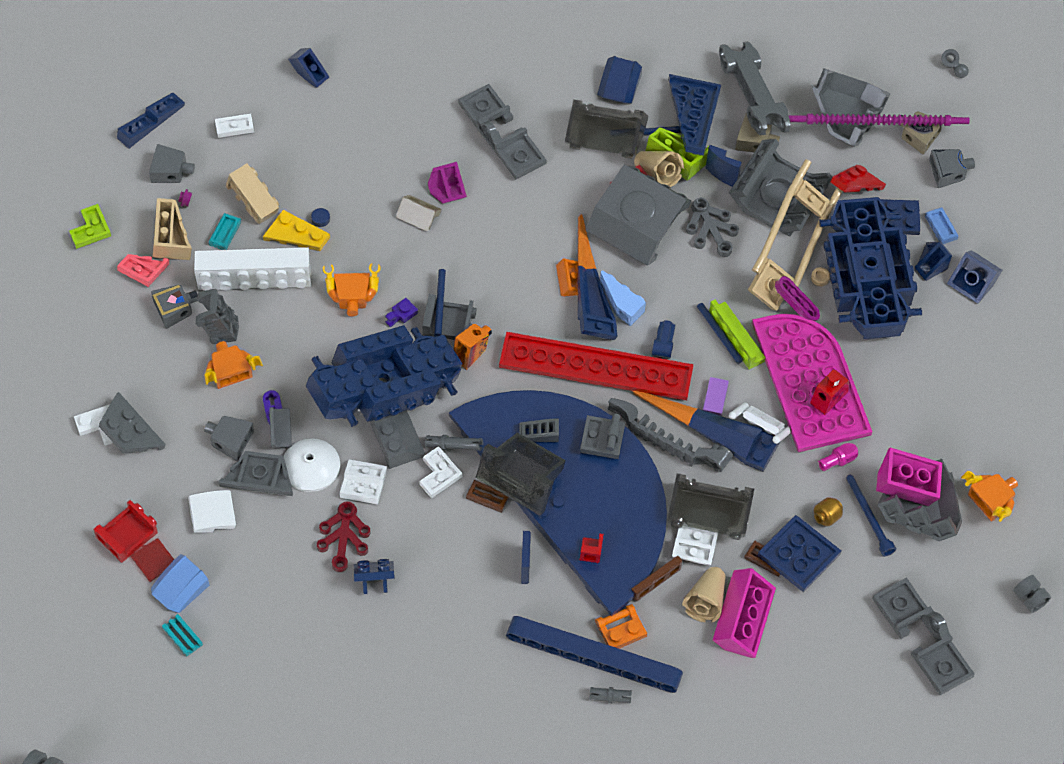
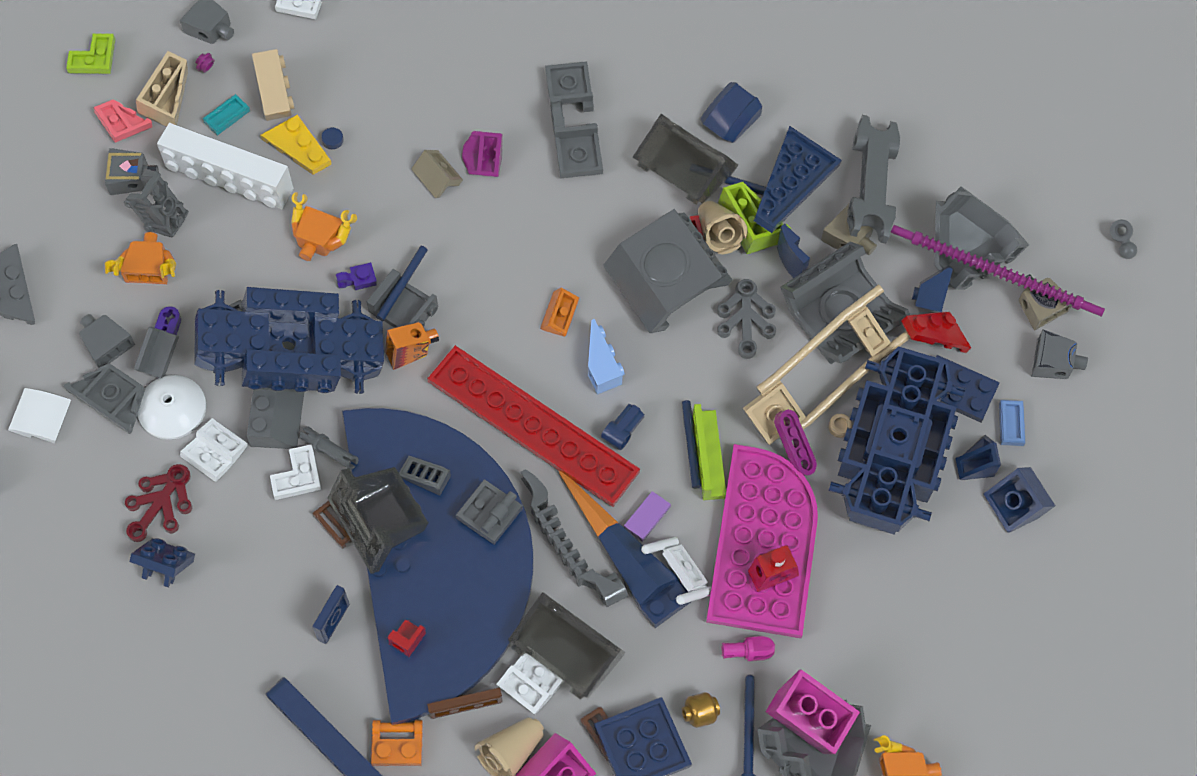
camera: 25 degrees right, 5 degrees up
(593, 307) = (564, 358): dark blue plate -> none
(839, 152) = (933, 290): none -> dark blue slope

